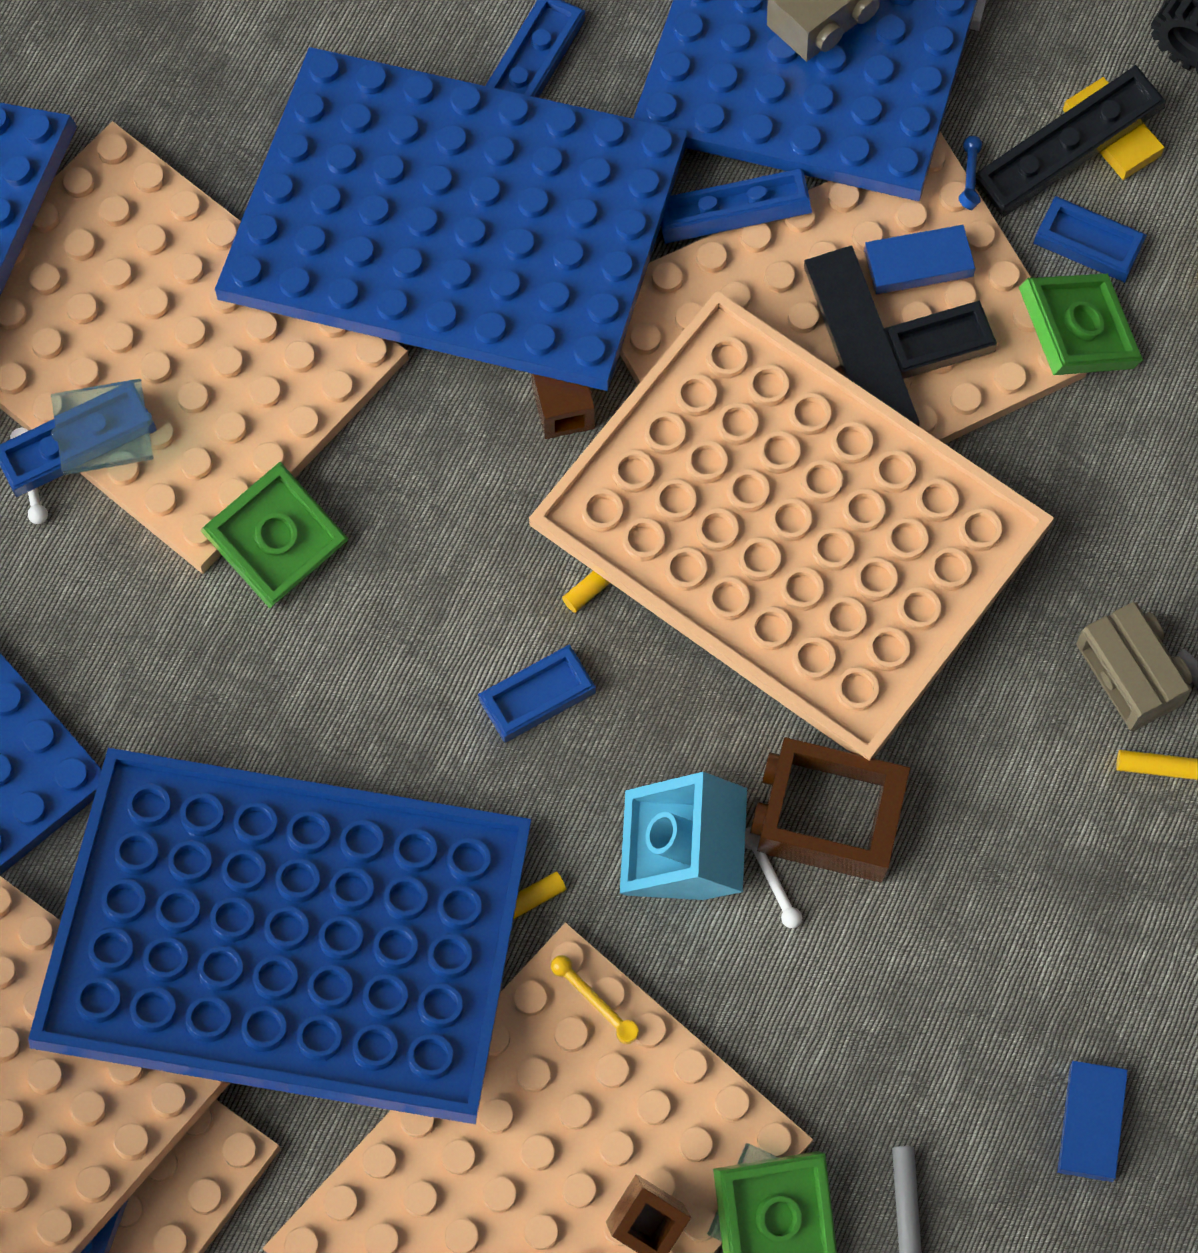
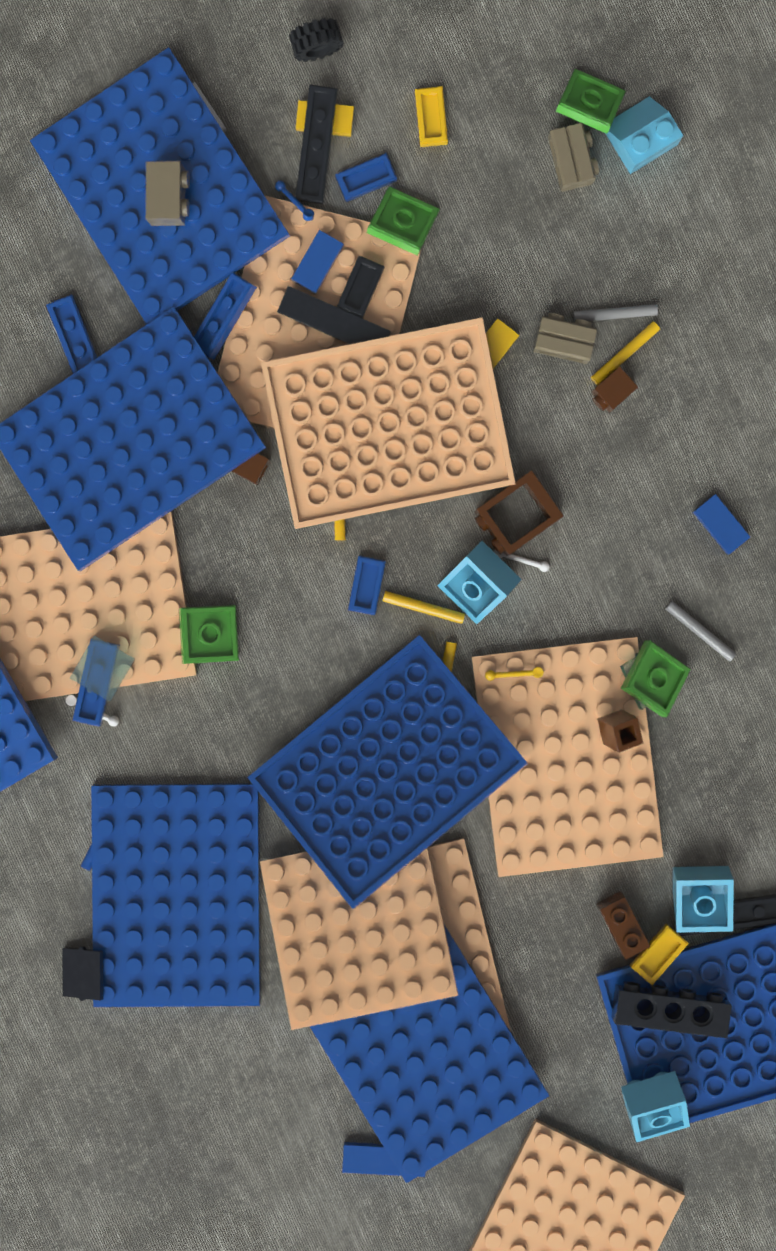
camera: 50 degrees left, 20 degrees up
(577, 797) = (423, 607): none -> yellow bar
(1041, 584) = (499, 340): none -> yellow tile
(1130, 792) = (613, 390): none -> reddish brown brick

